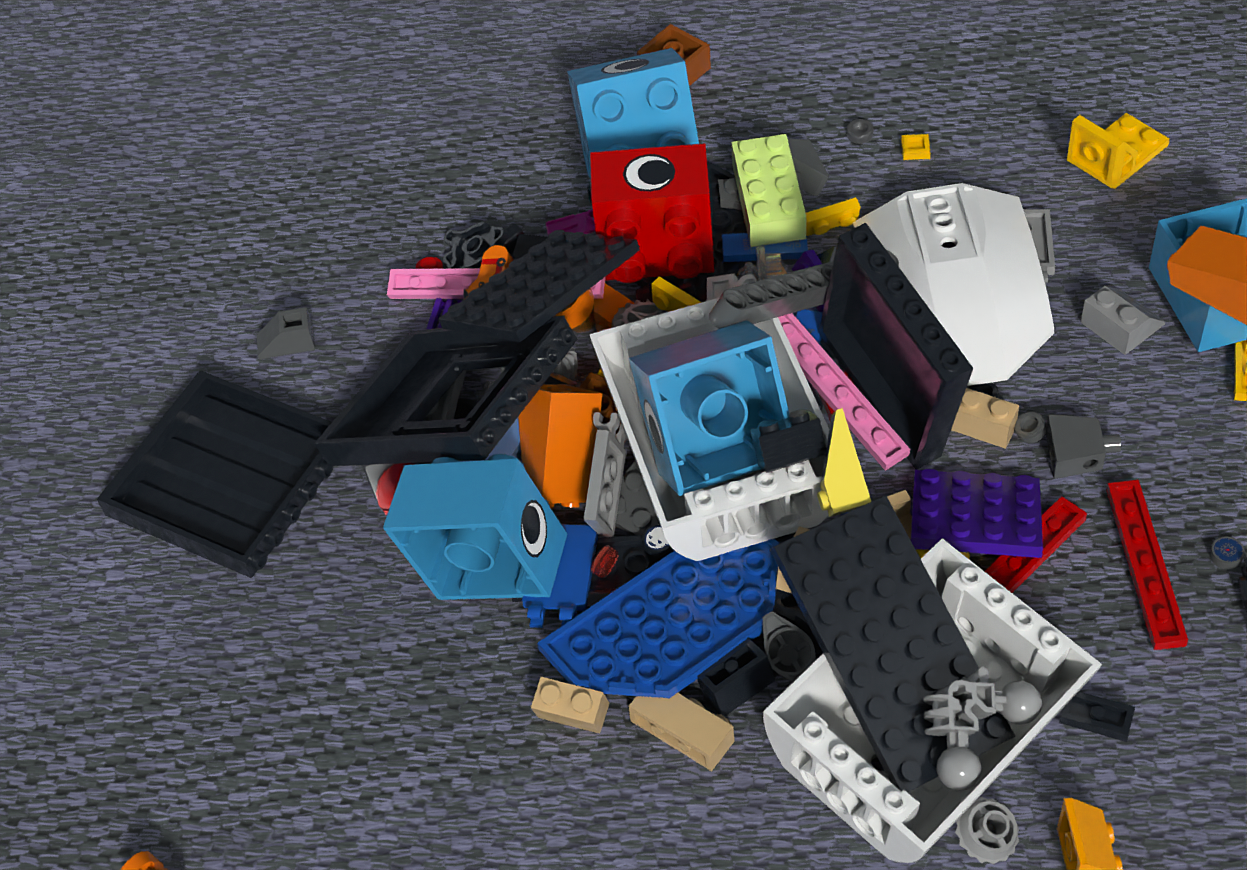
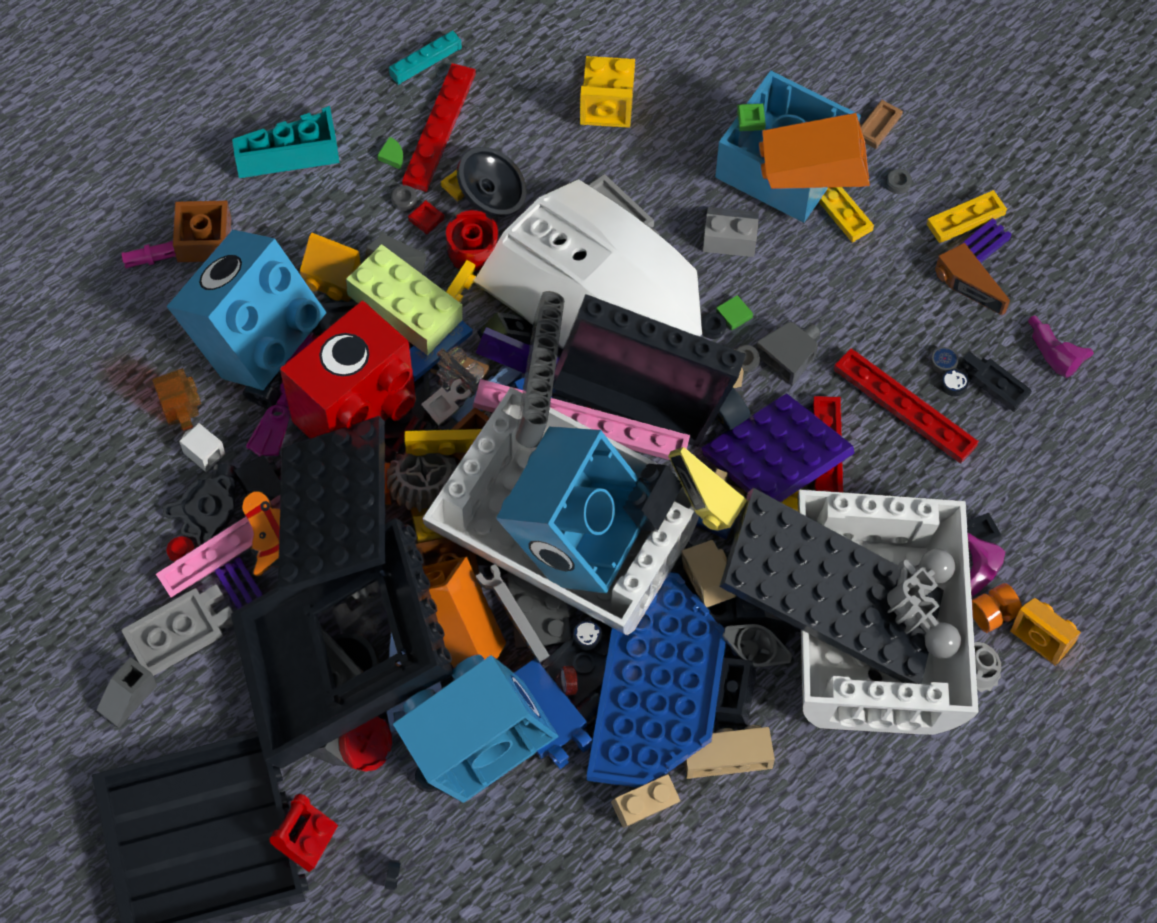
camera: 50 degrees left, 10 degrees up
(295, 530) = (311, 838): none -> red plate
(325, 605) = (392, 874): none -> black tile
(368, 320) = (178, 629): none -> light grey tile
(518, 206) = (202, 447): none -> white brick
(531, 158) = (177, 398): none -> clear orange brick
(614, 53) = (148, 254): none -> dark pink pin
(736, 126) = (328, 266): none -> light orange slope
(802, 40) = (288, 146): none -> teal wedge
(863, 155) = (426, 217): none -> red tile
(877, 183) = (471, 238): none -> red brick
(883, 94) = (391, 154): none -> bright green tile
(943, 96) = (439, 127): none -> red plate
(945, 145) = (491, 181): none -> black dish
(968, 446) = (733, 411): none -> black wheel
(983, 40) = (425, 57): none -> teal piece
(1027, 383) = (713, 325): none -> black tile
(1045, 783) = (998, 606): none -> orange wheel
(1058, 385) = (735, 312): none -> bright green tile
(1088, 748) = (986, 560): none -> magenta animal
(1208, 215) = (751, 117): none -> bright green tile
(1218, 578) = (954, 382): none -> tile

